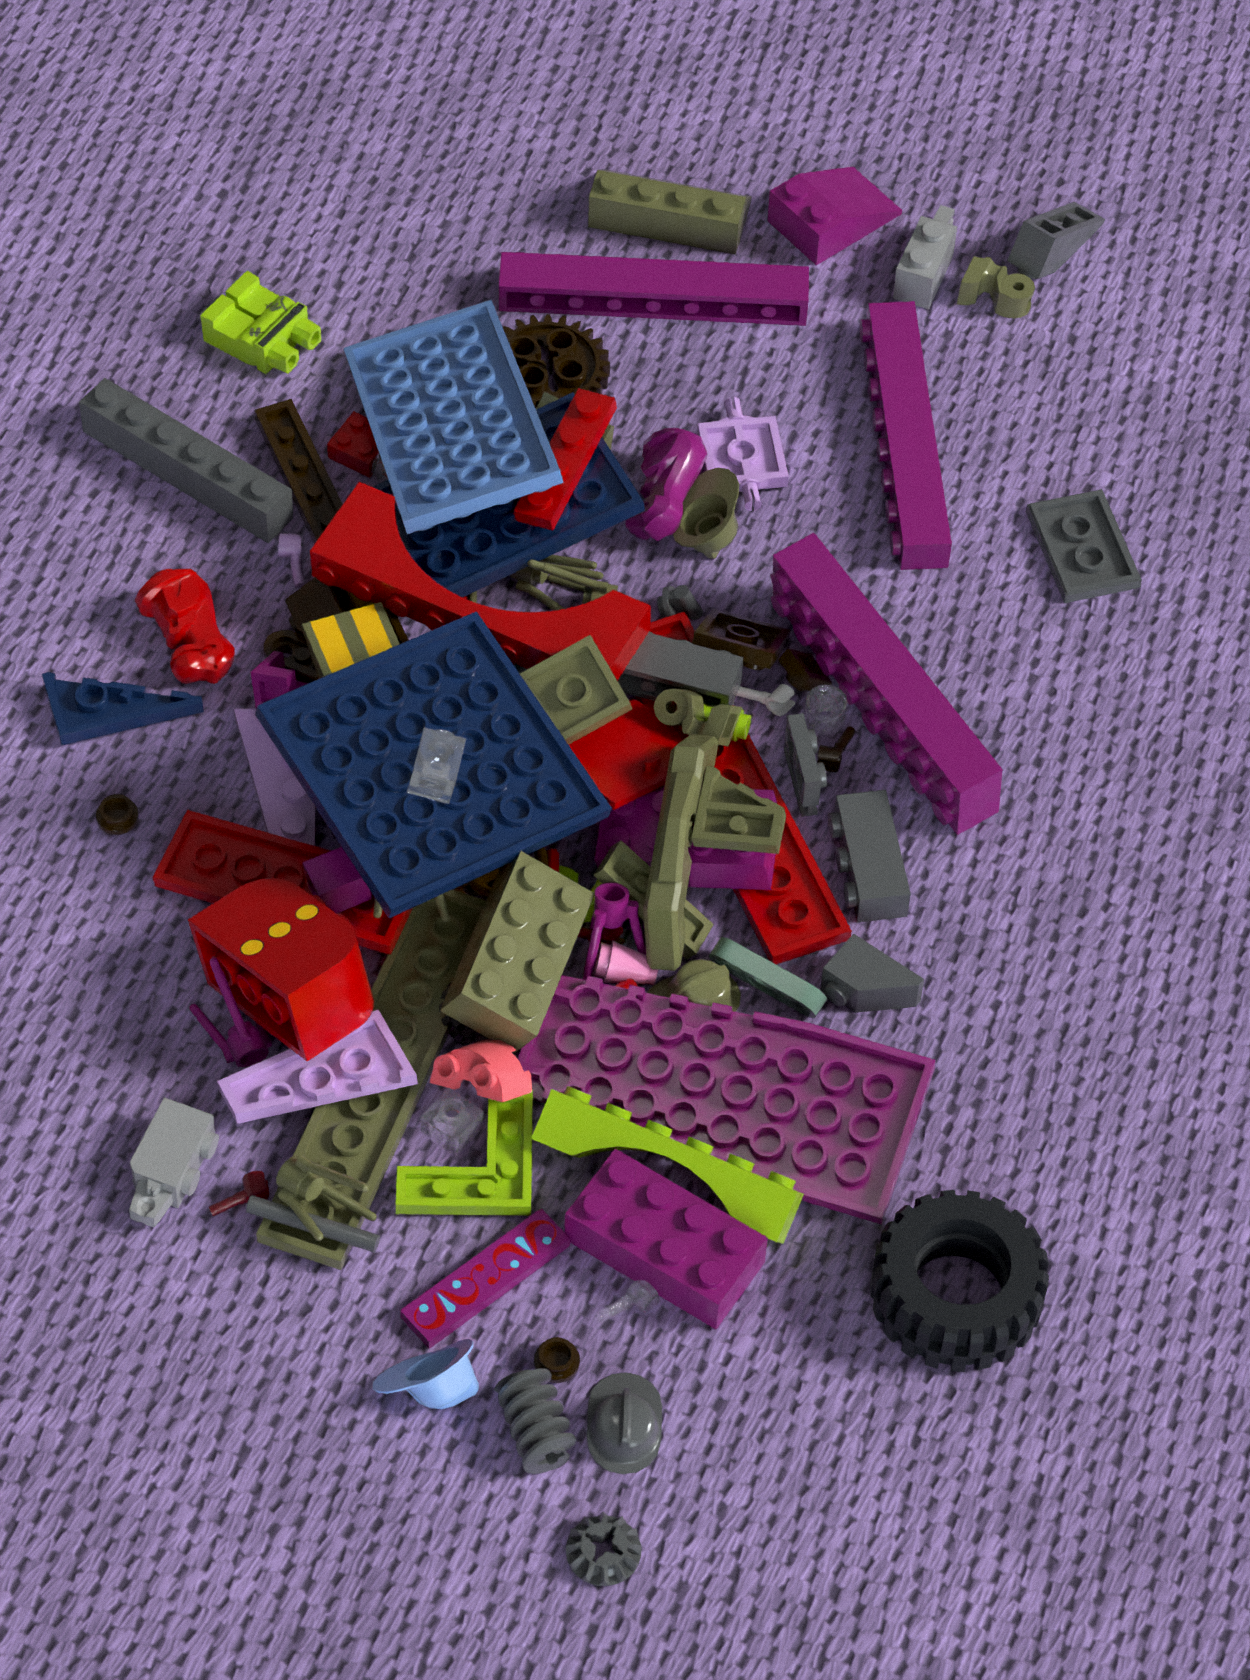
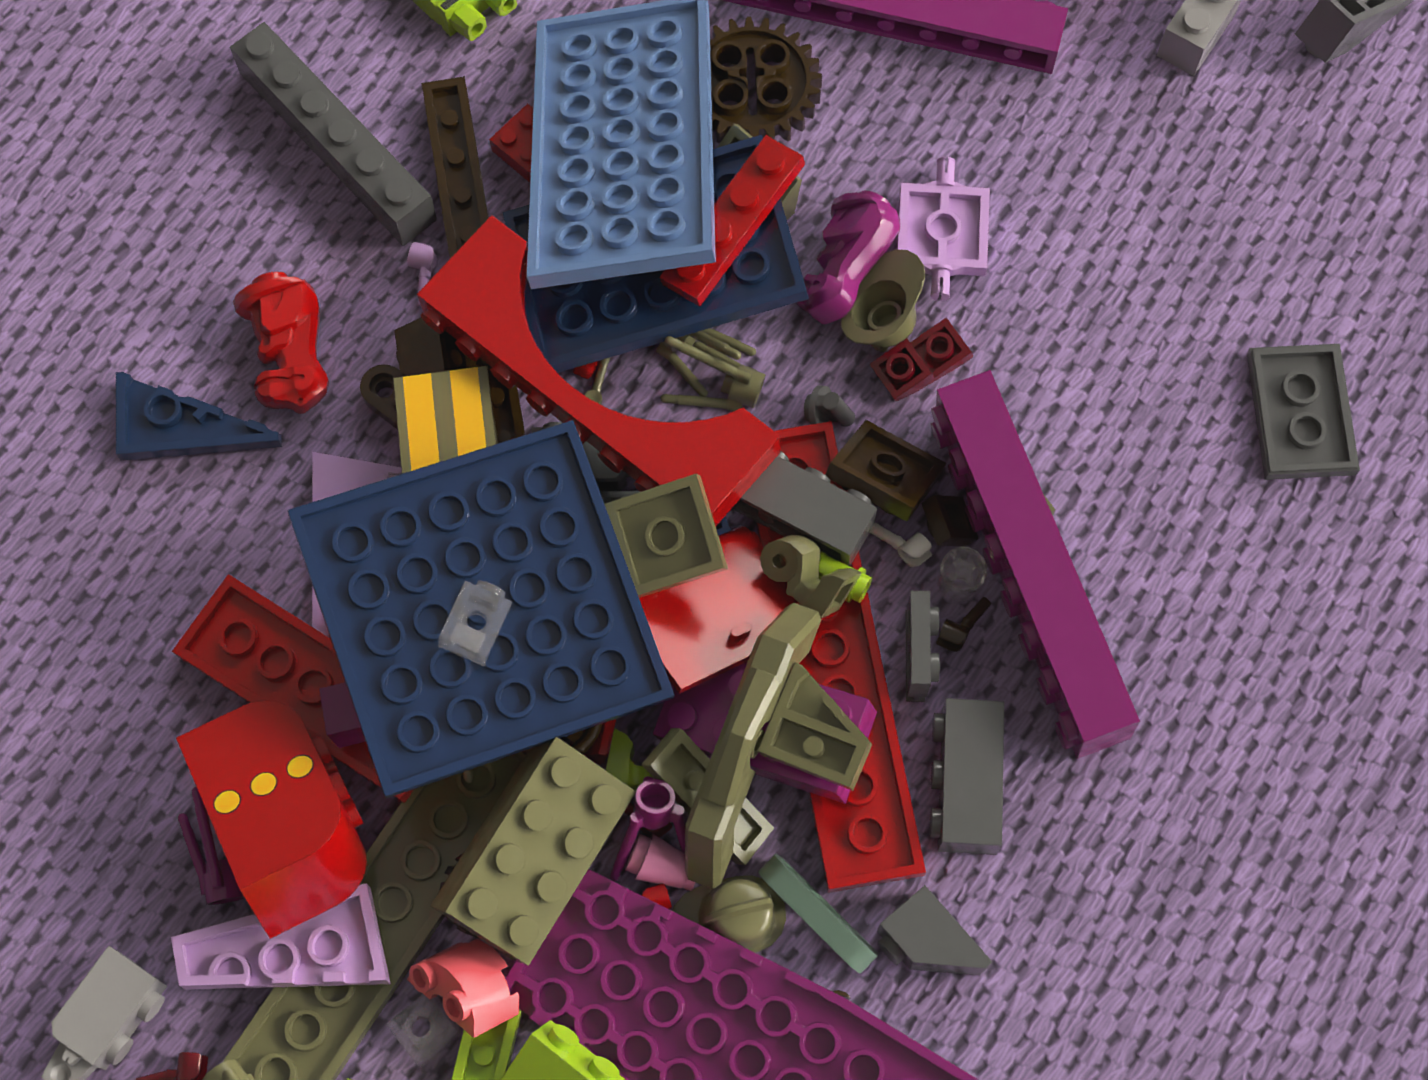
camera: 15 degrees right, 15 degrees up
(117, 814) = (157, 561): dark brown plate -> none
(272, 679) = (361, 437): magenta panel -> none
(748, 560) = (922, 361): none -> dark red slope
(907, 436) = (1132, 239): magenta brick -> none
(1009, 293) = (1288, 74): olive leg -> none

